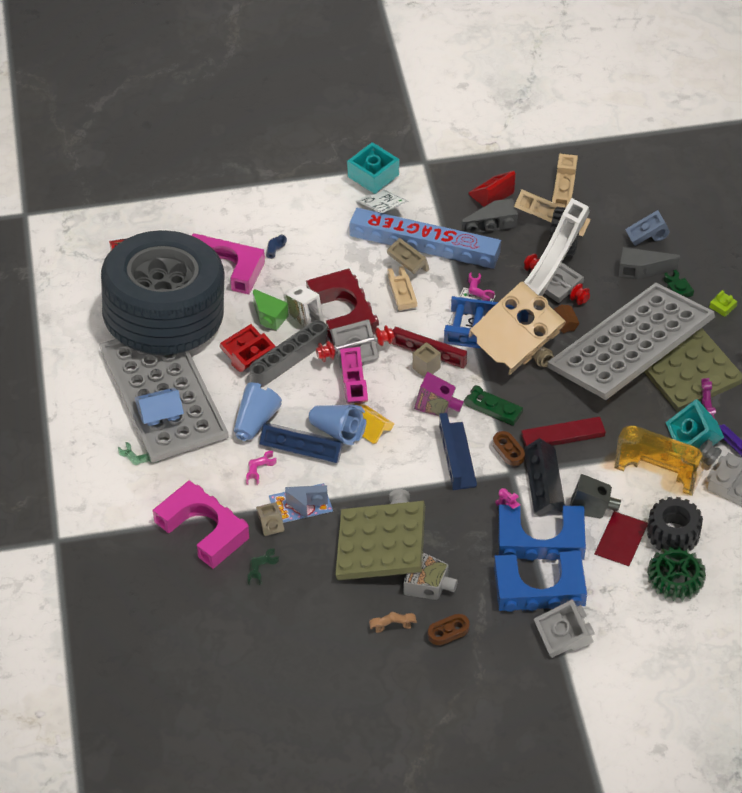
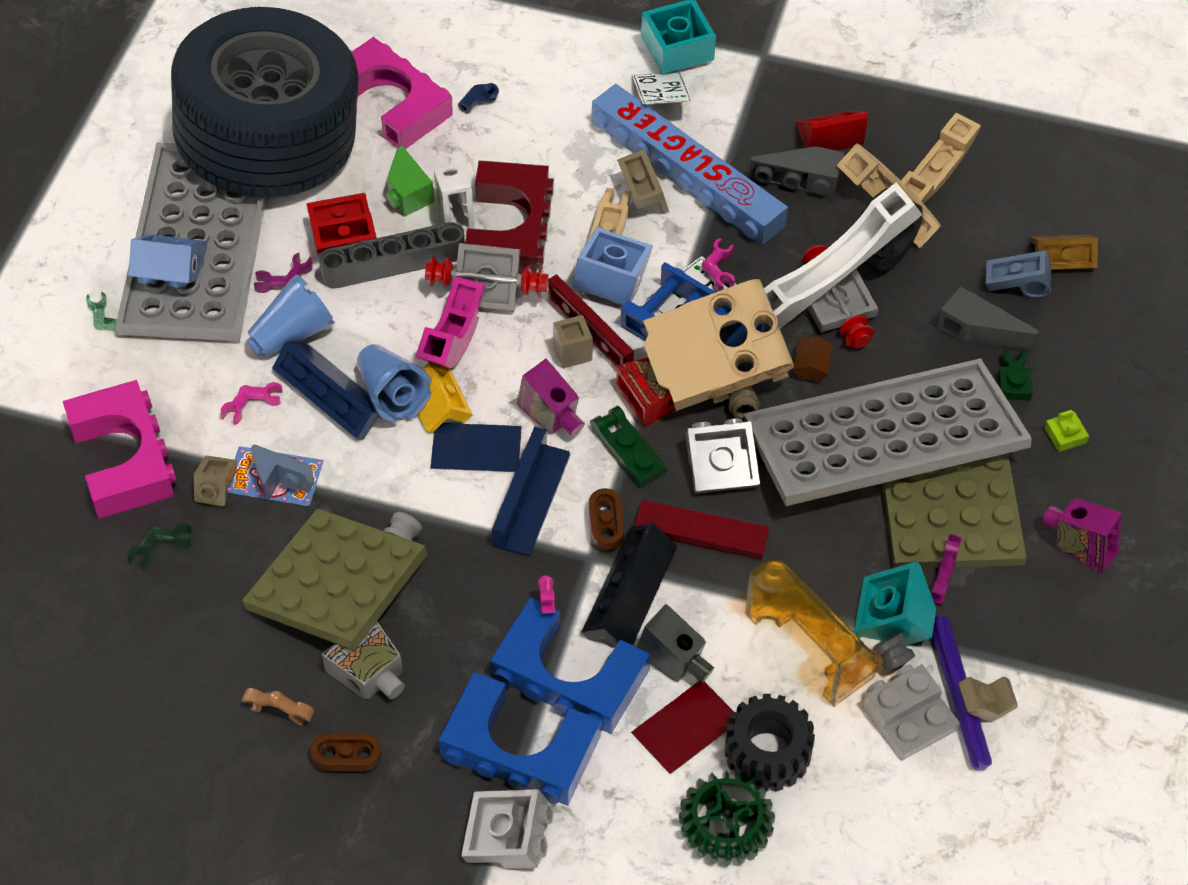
camera: 25 degrees right, 5 degrees up
(233, 393) = (281, 281): none -> magenta arm
(407, 441) = (476, 447): none -> dark blue sticker
(422, 311) = (611, 266): none -> medium blue slope
(484, 370) = (642, 391): none -> red torso
(551, 389) = (722, 456): none -> plate
(667, 206) = (1069, 250): none -> pearl gold panel

